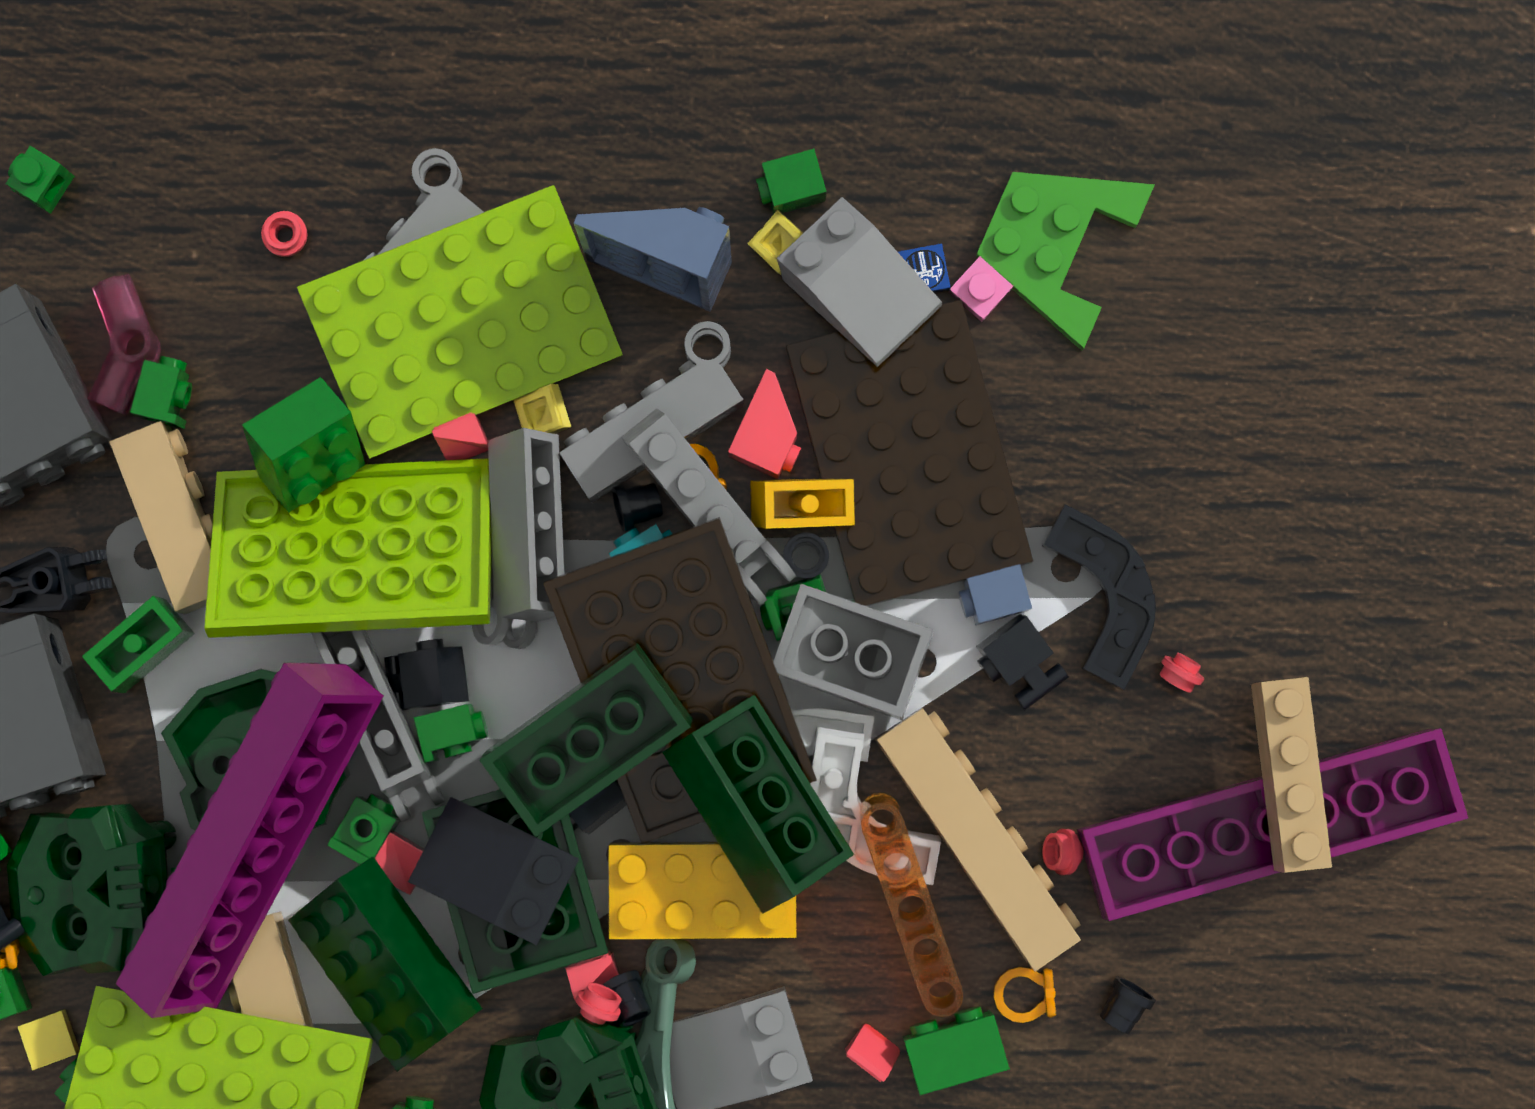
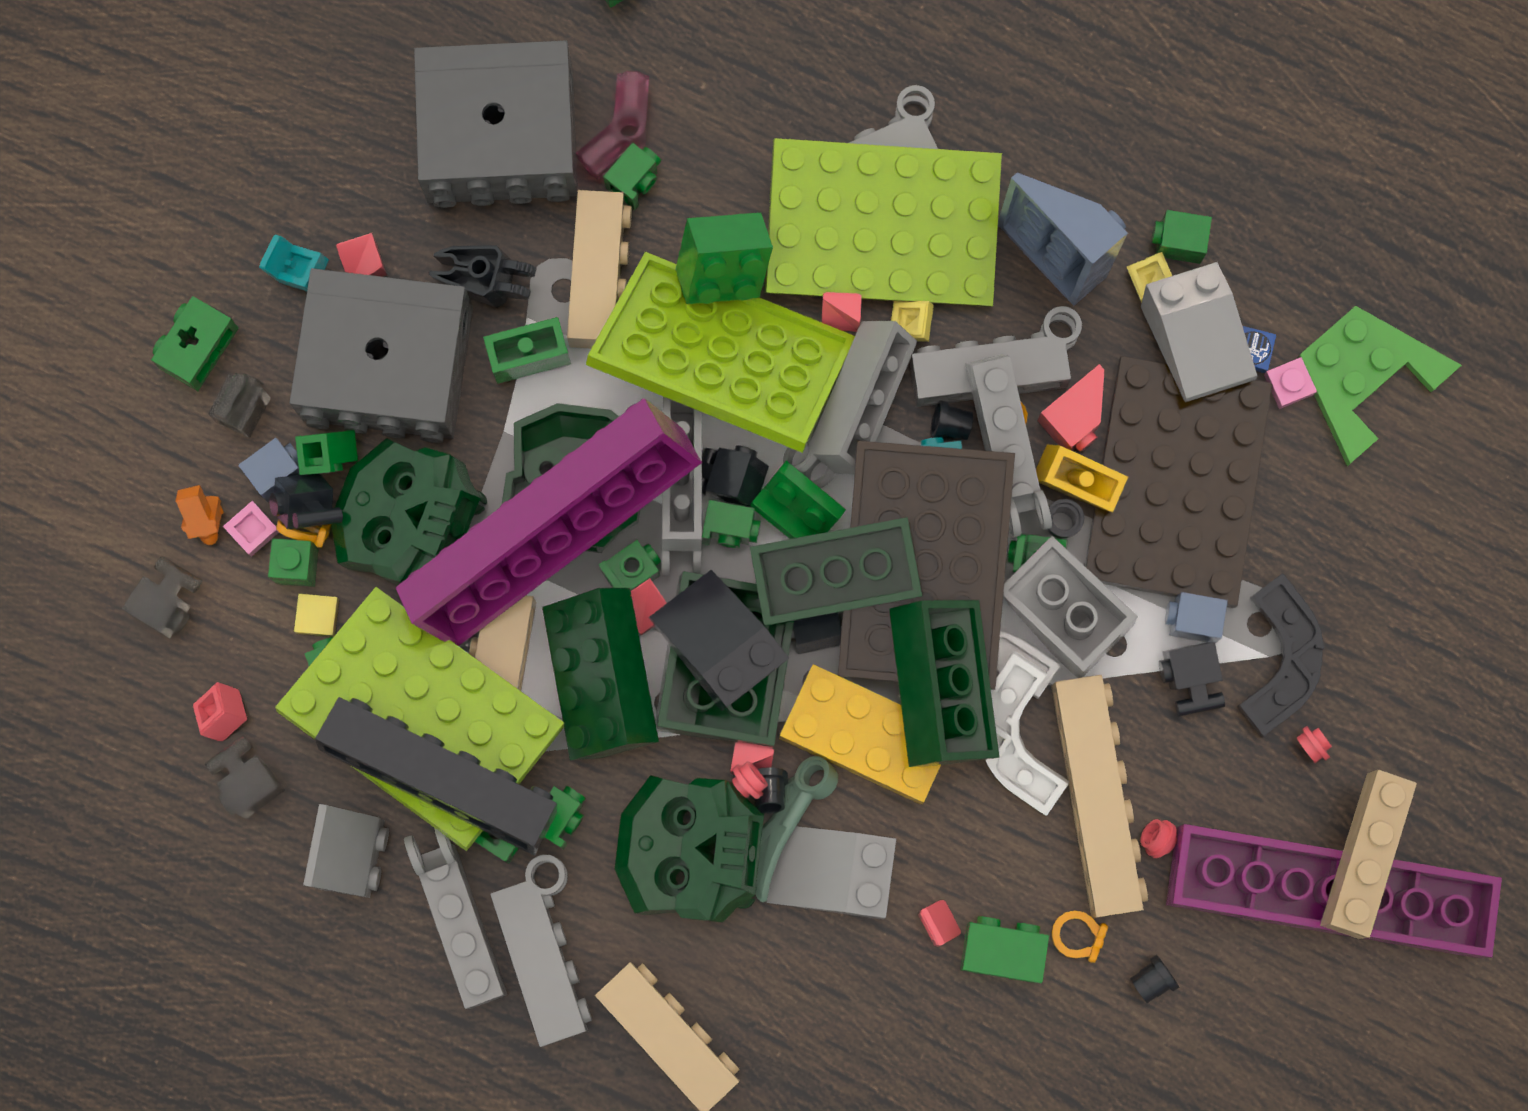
camera: 25 degrees right, 5 degrees down
(282, 220) = (775, 90): coral plate -> none
(512, 678) = (796, 504): none -> green bracket
(917, 925) = (1026, 839): clear orange beam -> none

